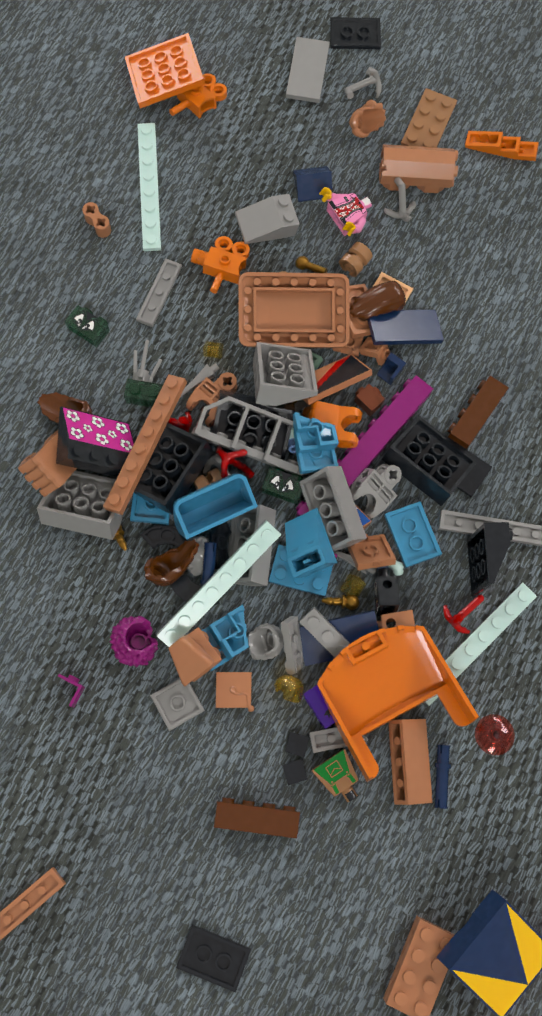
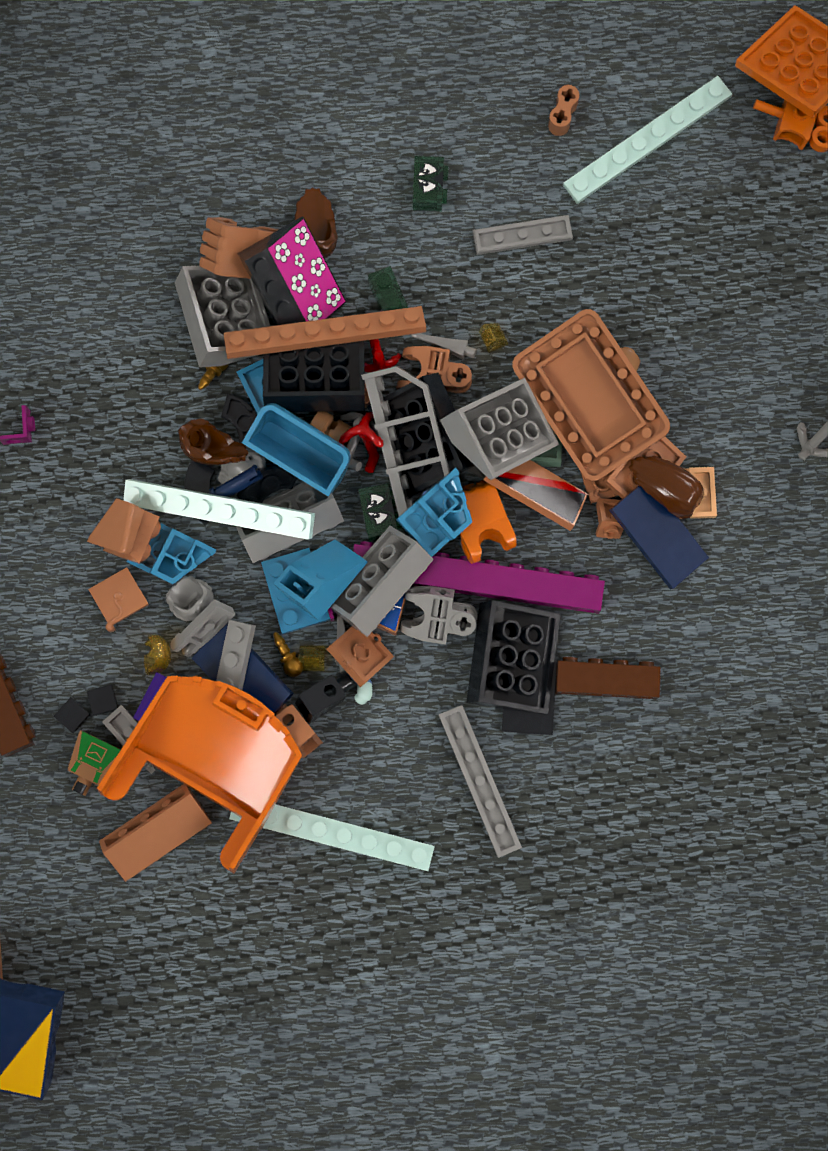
camera: 65 degrees right, 5 degrees up
(133, 641) = (104, 460): magenta hair -> none
(142, 374) = (407, 278): light grey plant -> none
(177, 704) = (68, 548): light grey tile -> none
(221, 262) = (602, 279): orange piece -> none
(268, 219) = (691, 297): light grey slope -> none
(303, 263) = (668, 371): pearl gold bar -> none
(311, 181) = (778, 320): dark blue slope -> none
(346, 210) = (765, 381): torso -> none
(357, 257) = (709, 427): medium nougat wheel -> none
(369, 399) = (544, 546): copper brick -> none
(391, 369) = (598, 550): dark blue panel -> none
(412, 534) = (413, 689): dark azure plate -> none
(442, 775) = (170, 871): dark blue pin -> none
(458, 618) = (342, 793): red piece -> none
(485, 738) = (255, 908): clear red dish -> none
(486, 553) = (432, 779): black slope -> none

